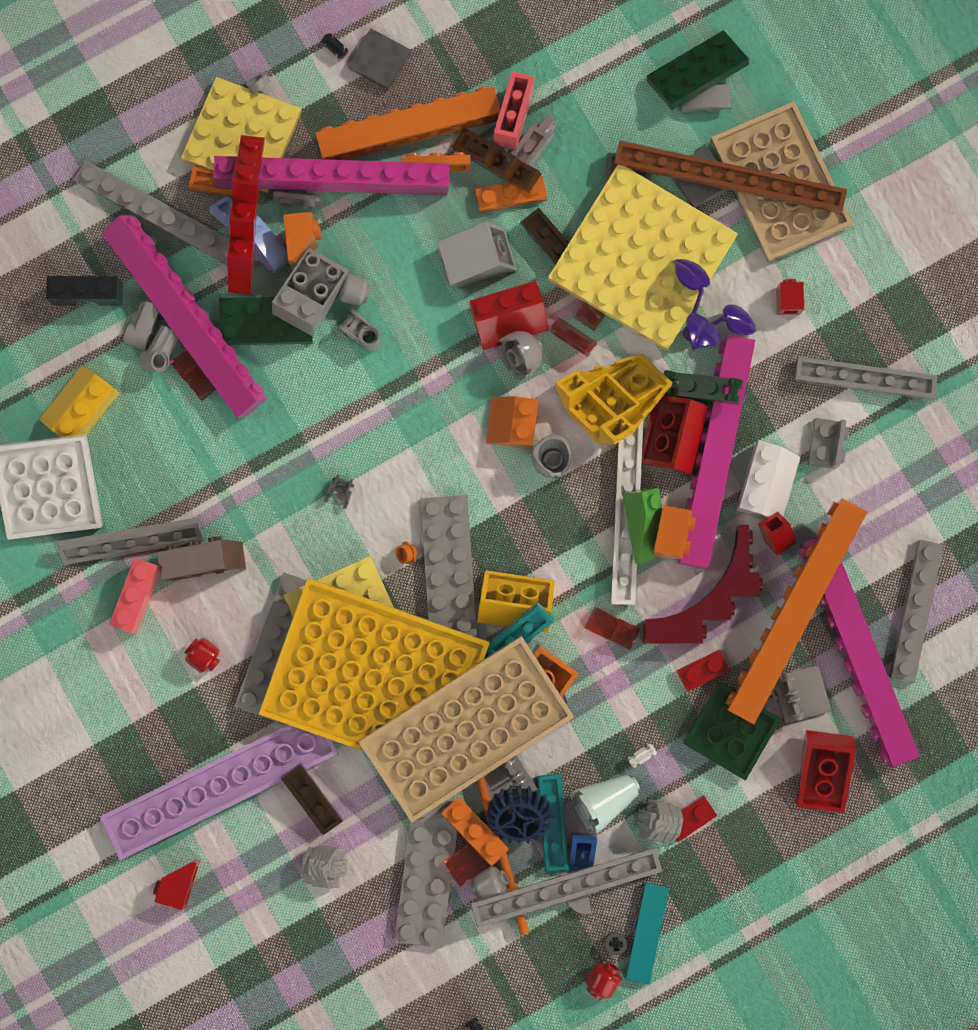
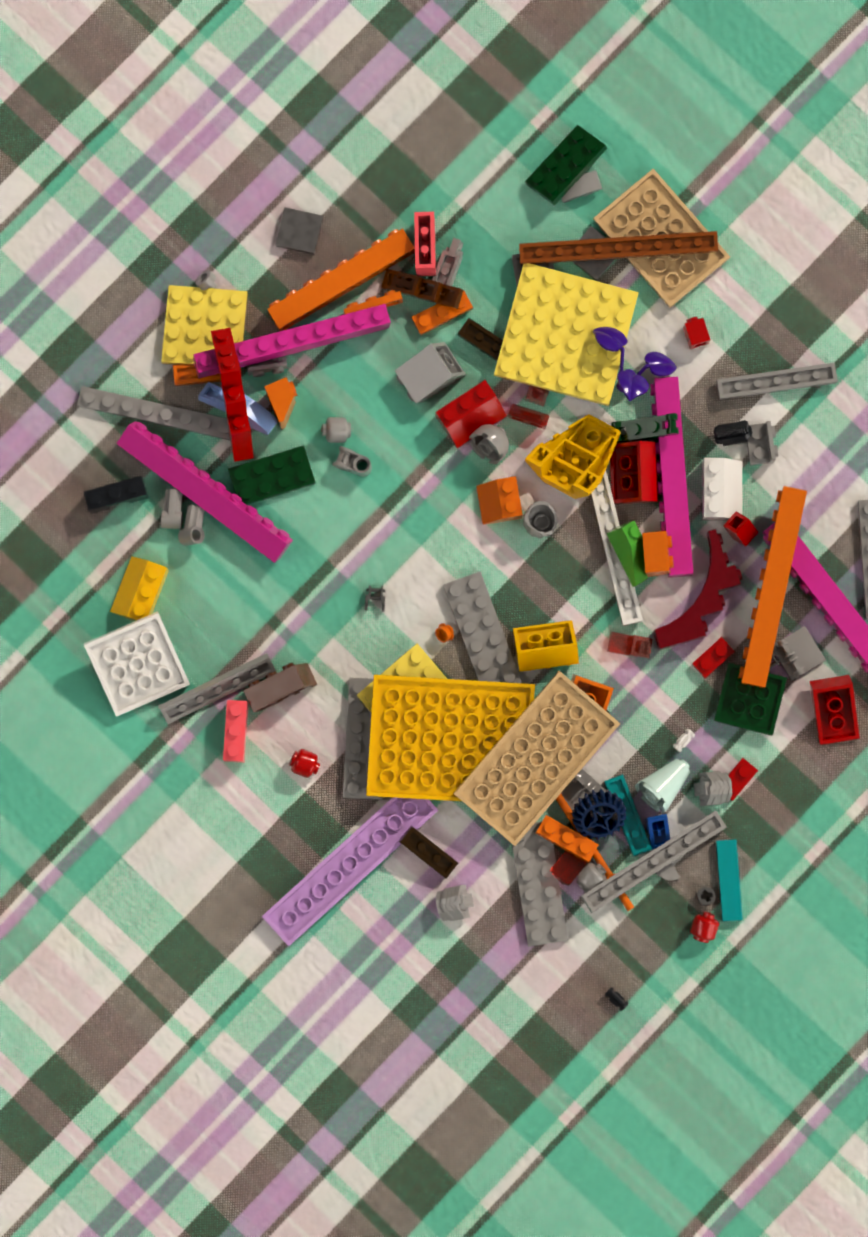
camera: 15 degrees left, 0 degrees up
(177, 886) = (340, 953): red slope -> none
(193, 375) = (225, 537): clear red slope -> none
(309, 291) = (303, 442): light grey slope -> none
(334, 46) = (259, 230): black piece -> none
(527, 625) = (561, 661): teal tile -> none
(799, 422) = (732, 433): none -> black piece

